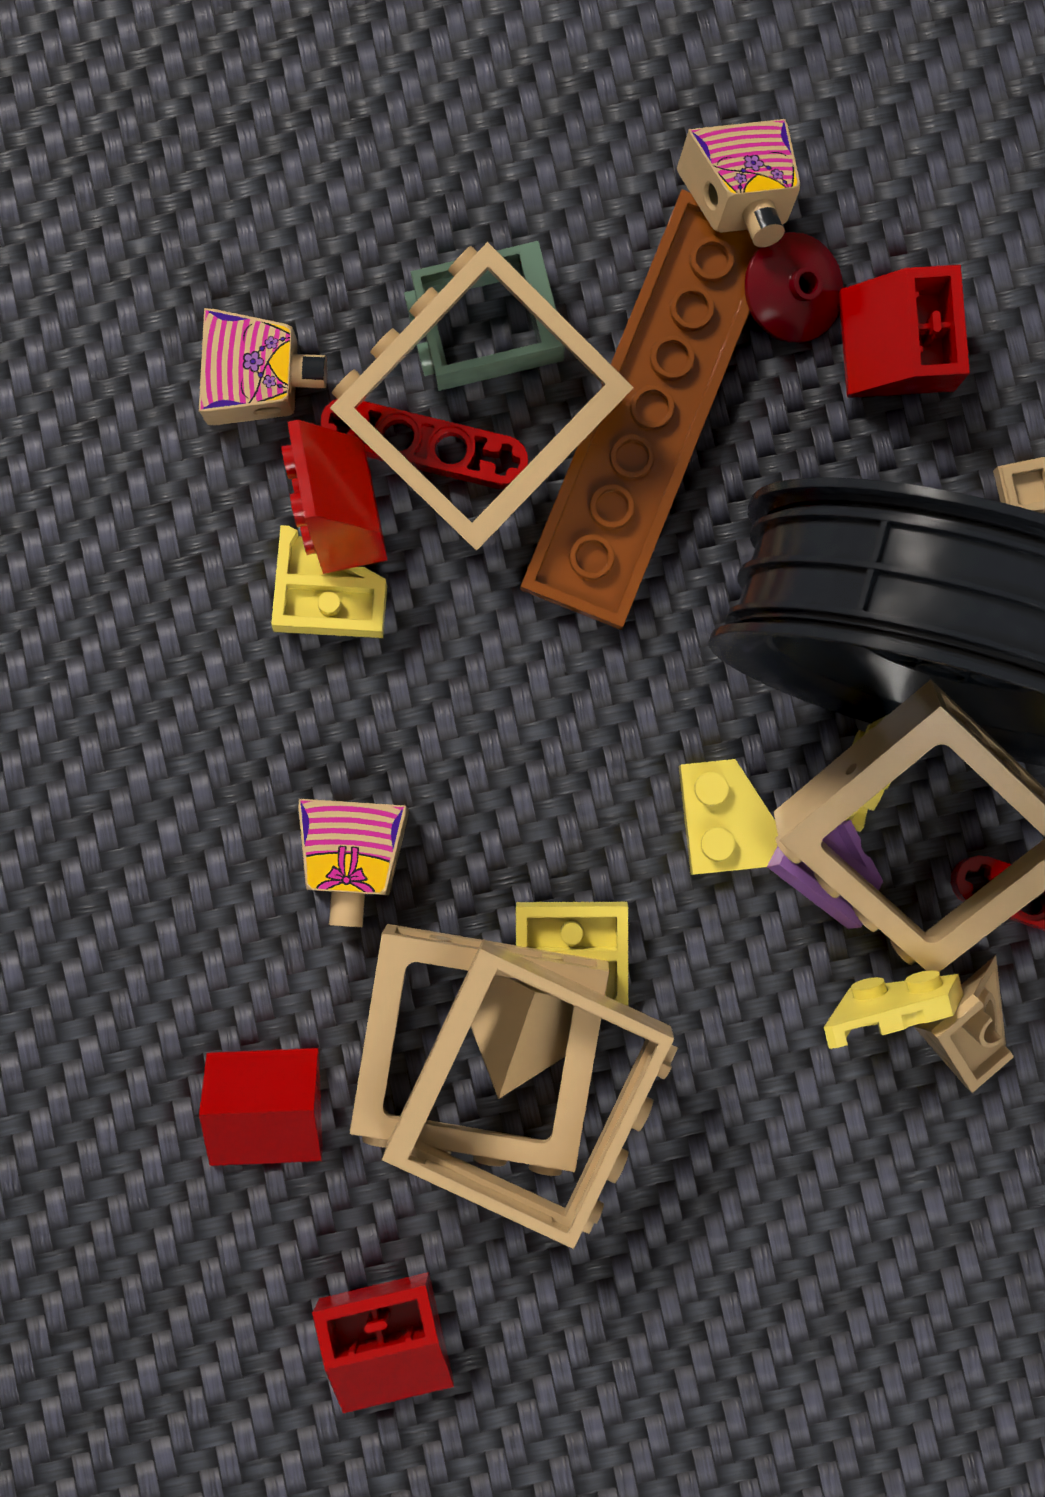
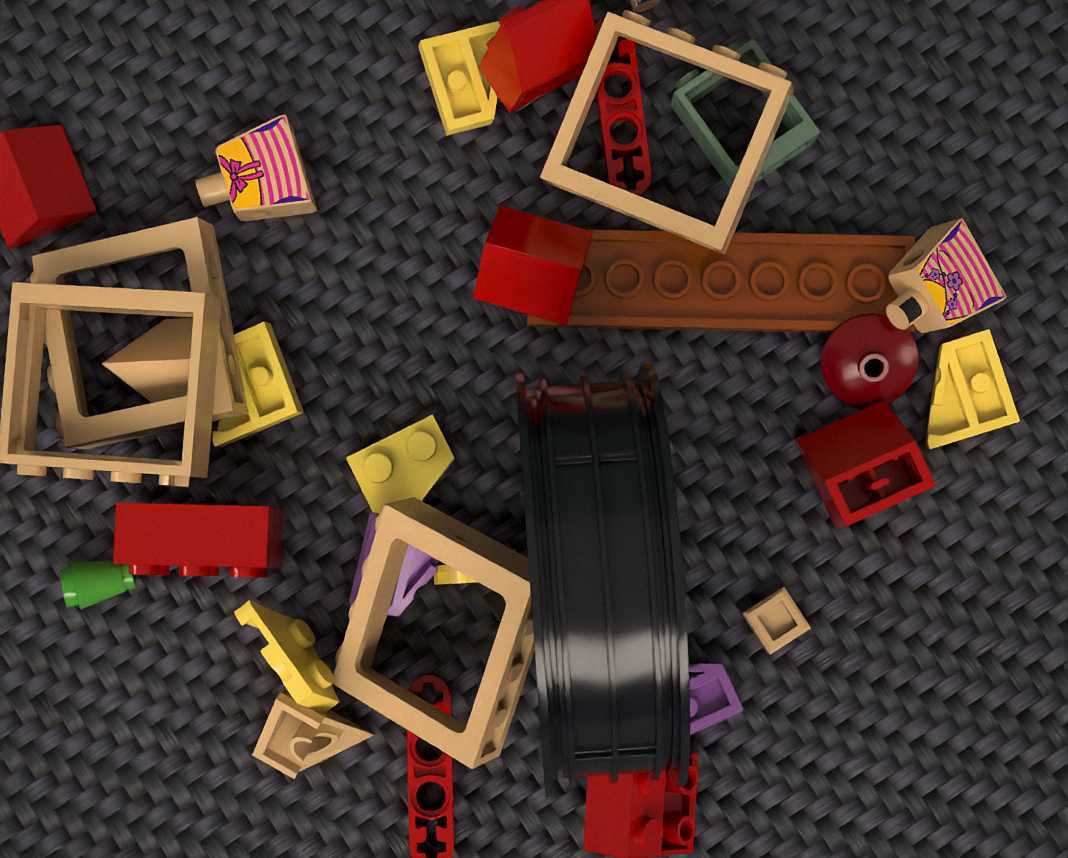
camera: 70 degrees right, 0 degrees up
(564, 594) = (532, 265): none -> red slope
(728, 1193) = (94, 582): none -> bright green cone
(730, 1062) = (198, 539): none -> red brick
(864, 200) = (968, 391): none -> light yellow wing

